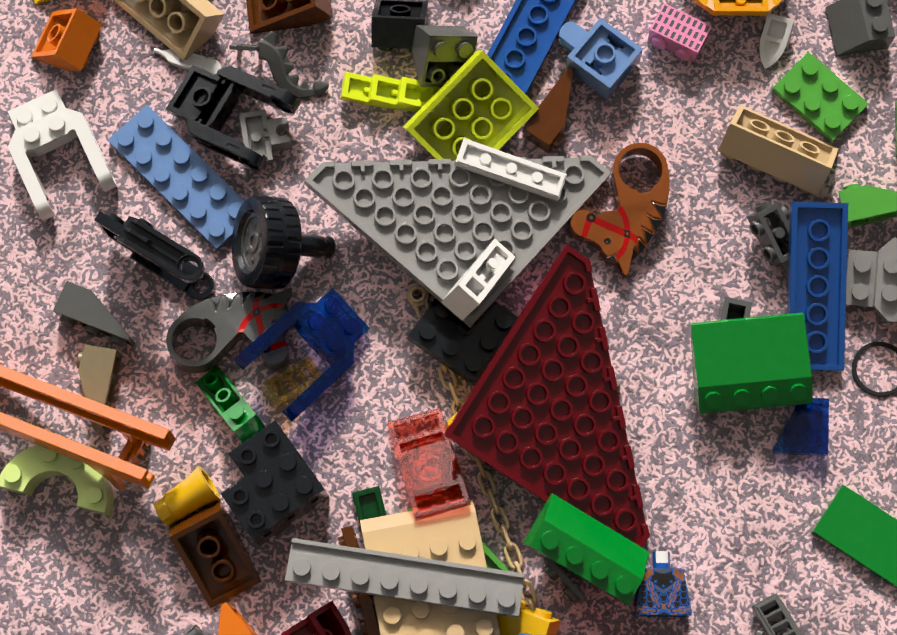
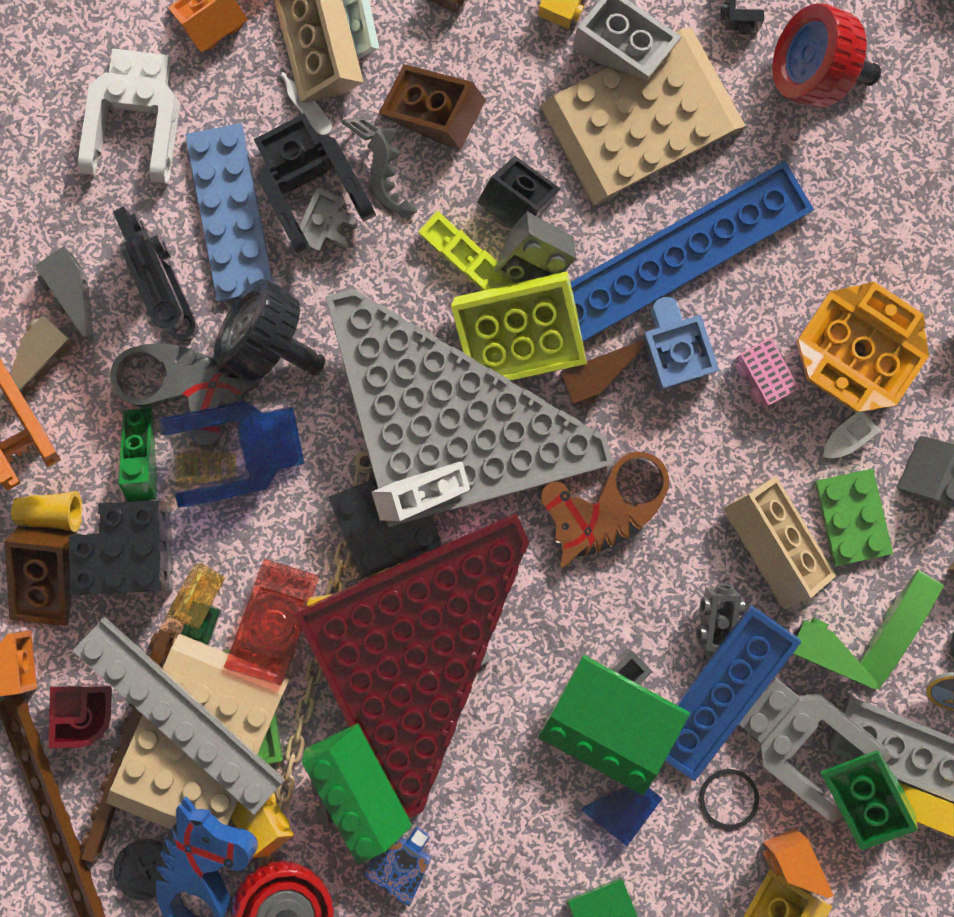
camera: 30 degrees right, 10 degrees up
(351, 485) = (196, 595): none -> clear yellow slope
(510, 169) = (521, 404): white tile -> none

